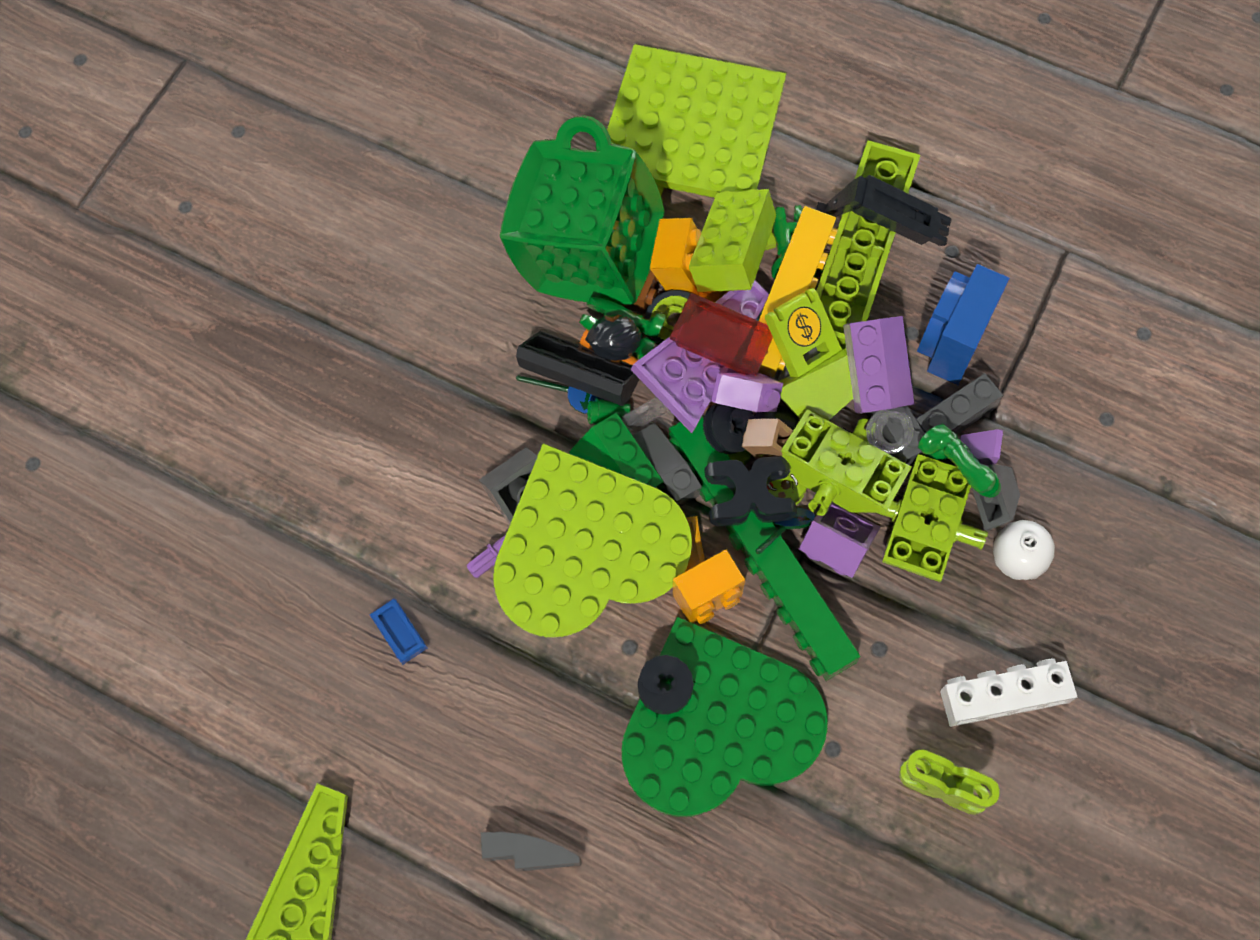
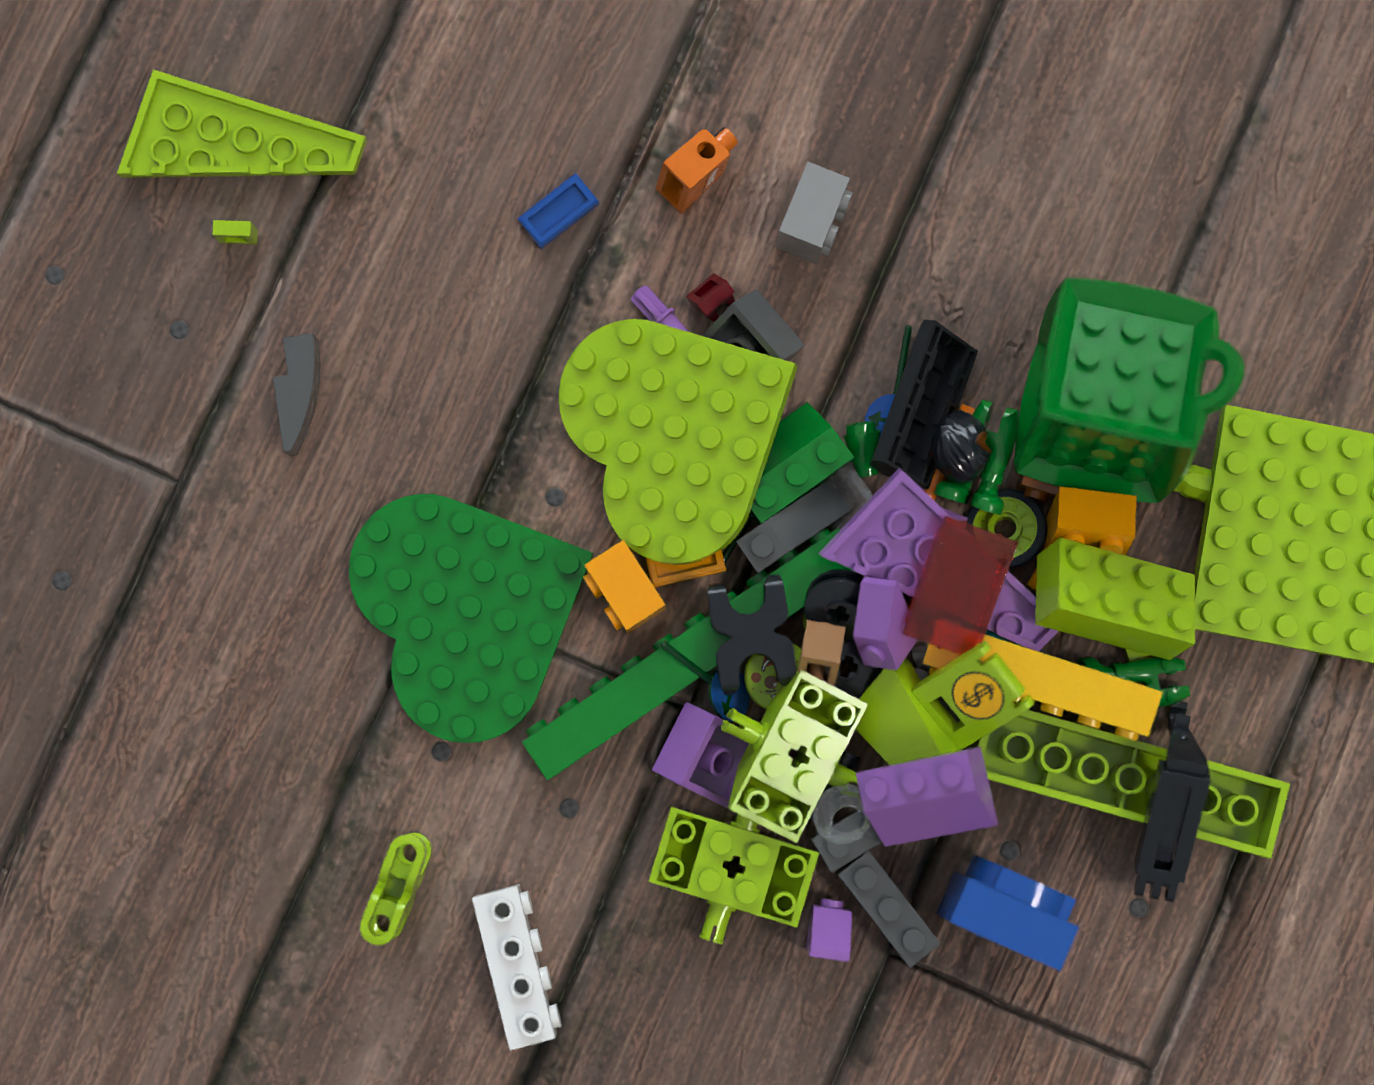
camera: 80 degrees right, 15 degrees up
(378, 520) = (695, 167): none -> orange torso
(385, 900) = (235, 232): none -> lime tile
(424, 432) = (812, 212): none -> light grey brick
(480, 516) = (710, 295): none -> dark red tile
(665, 668) = (493, 559): black piece -> none
(943, 443) = (786, 923): green piece -> none
(1001, 508) = (770, 956): dark grey slope -> none
(1023, 550) = (709, 973): white cylinder -> none

